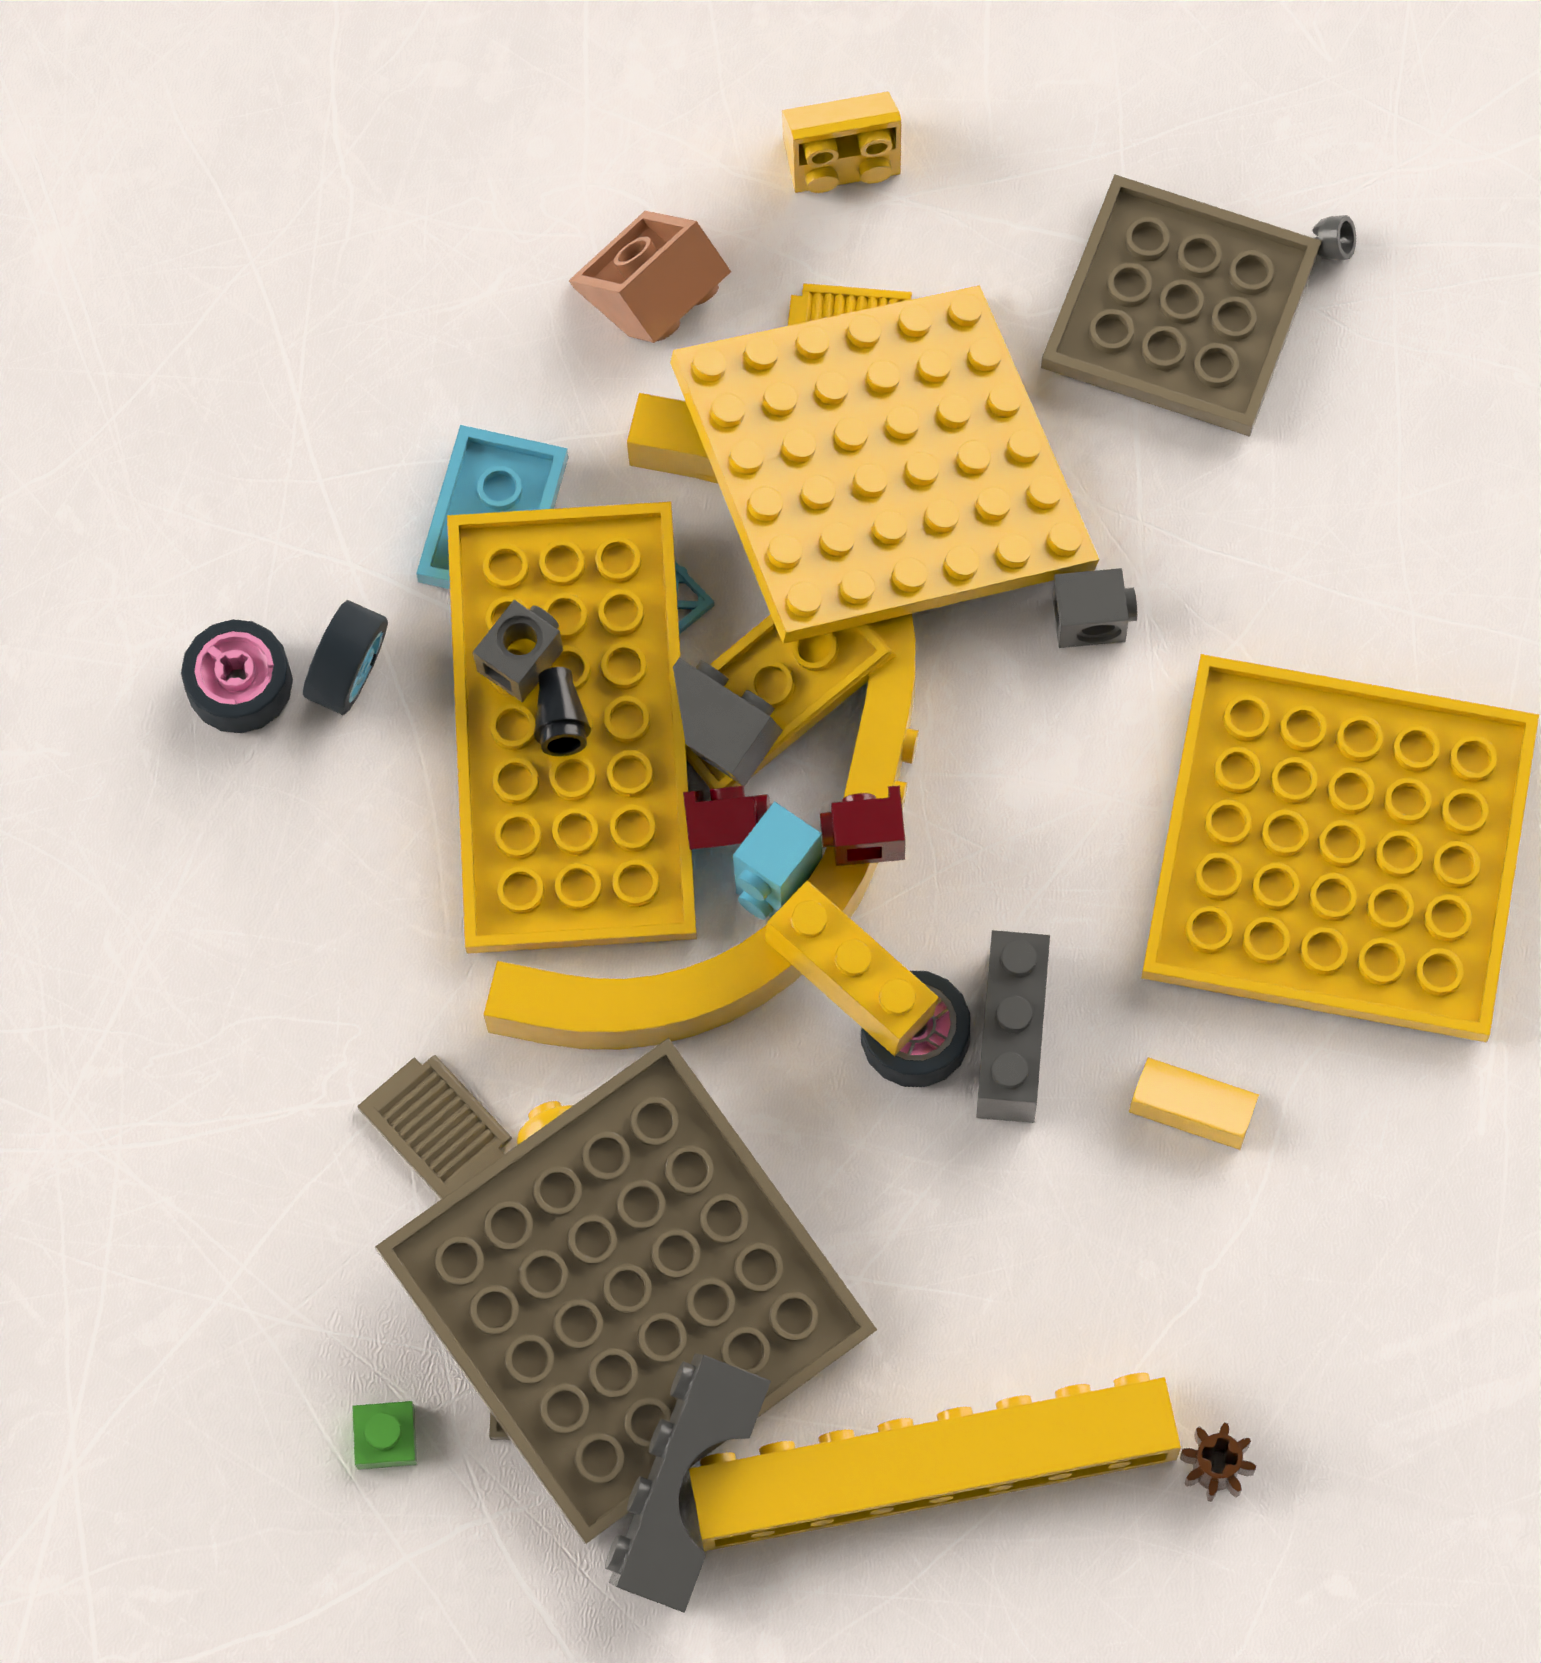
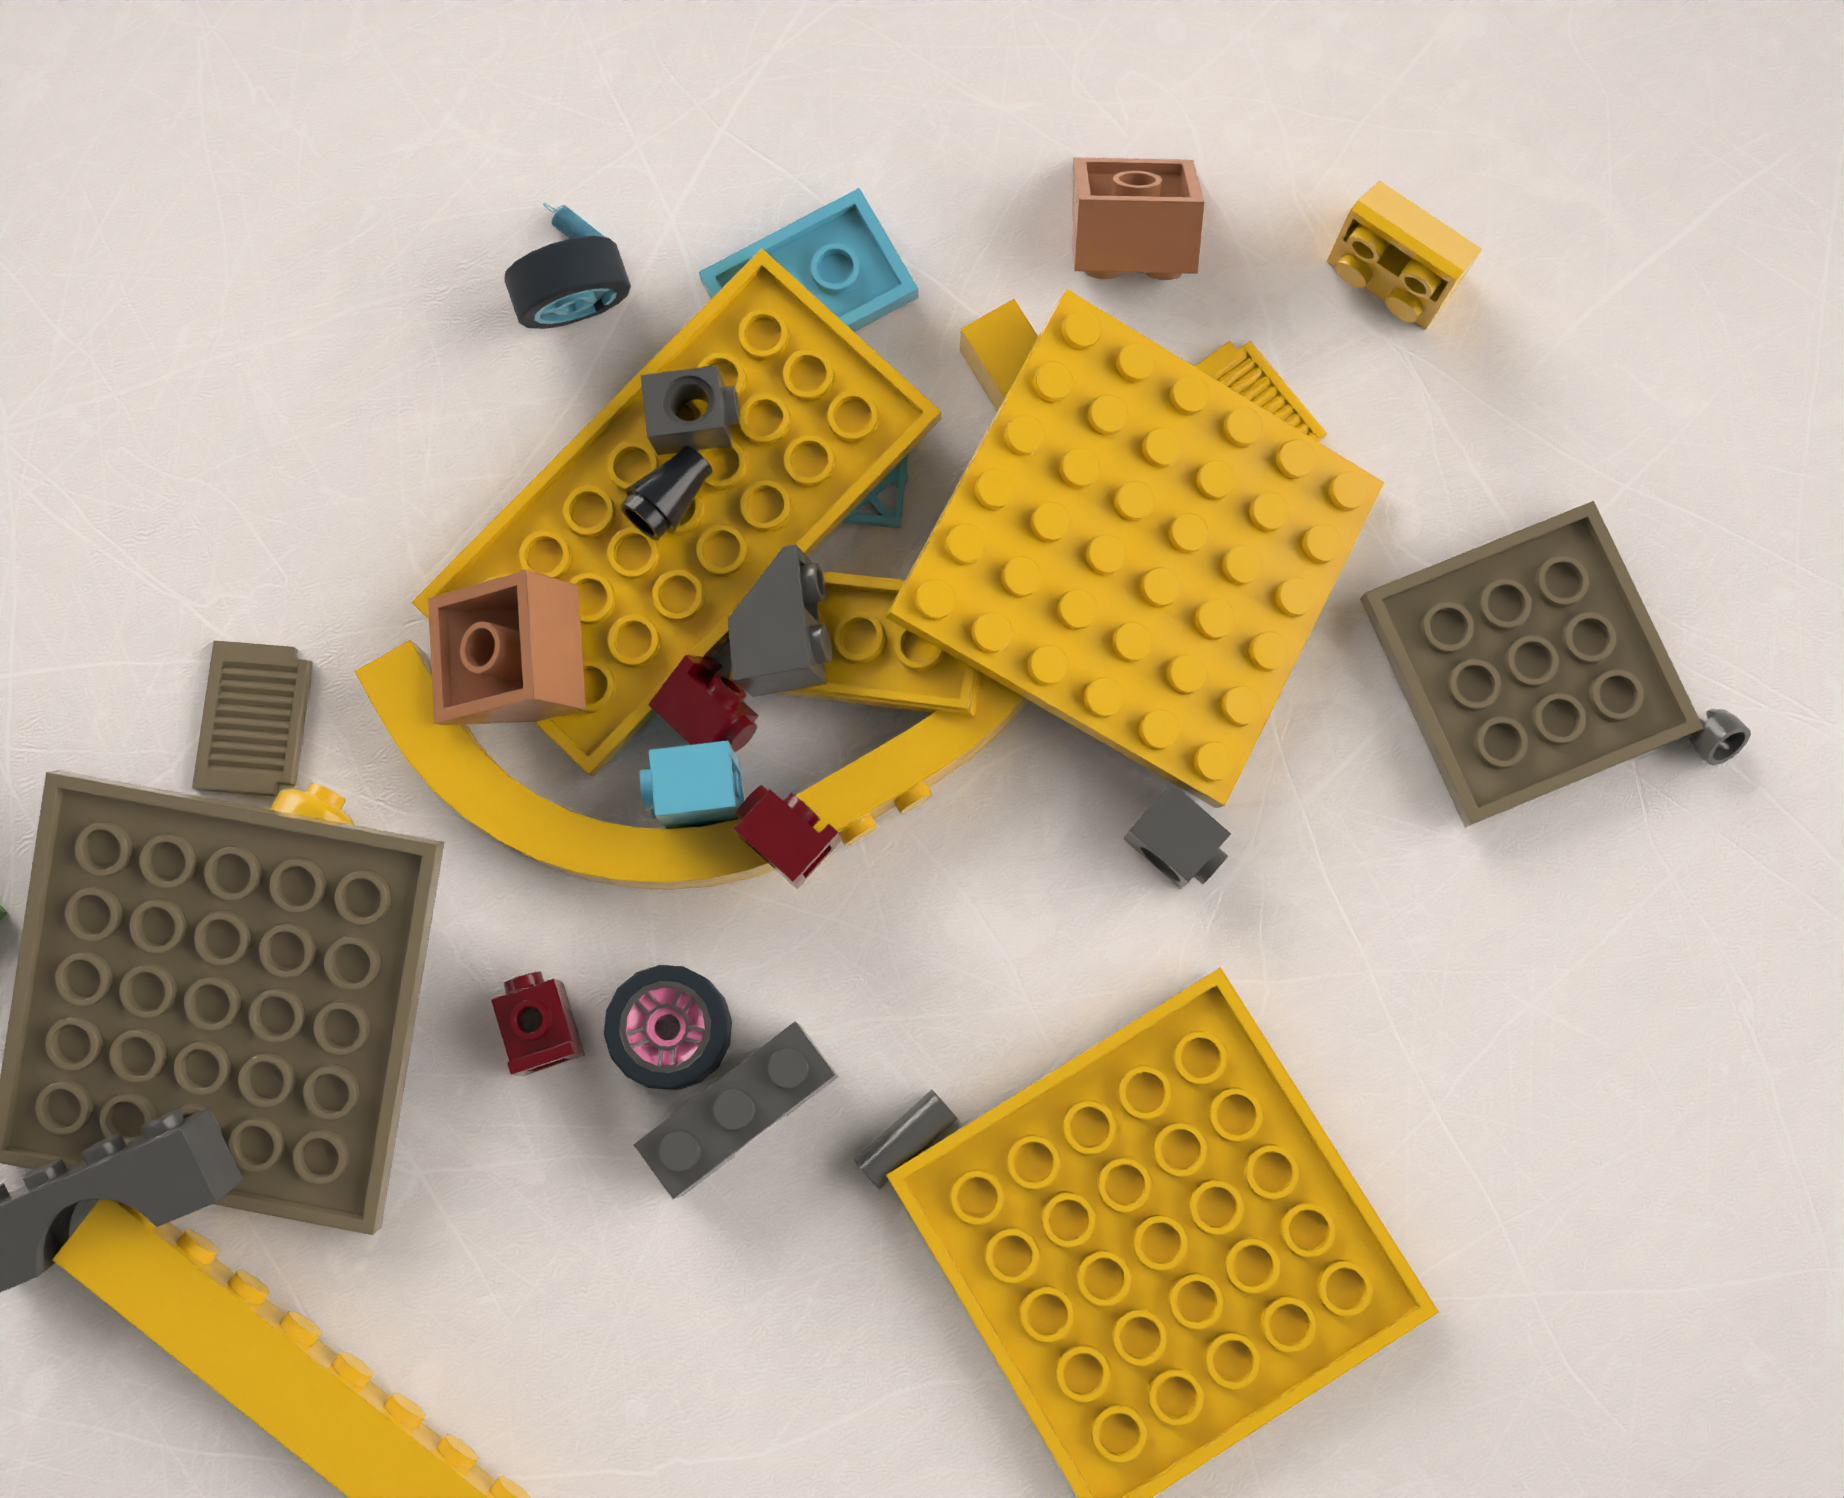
camera: 45 degrees right, 10 degrees up
(236, 703) = (481, 186): wheel -> none
(302, 628) = (571, 224): none -> medium azure piece
(569, 902) = (506, 651): none -> nougat slope
(839, 1128) = (555, 1039): none -> dark red brick
(850, 968) = (645, 937): yellow brick -> none
(1129, 944) = (905, 1138): none -> dark grey hinge
(1193, 1103) = (814, 1320): yellow slope -> none

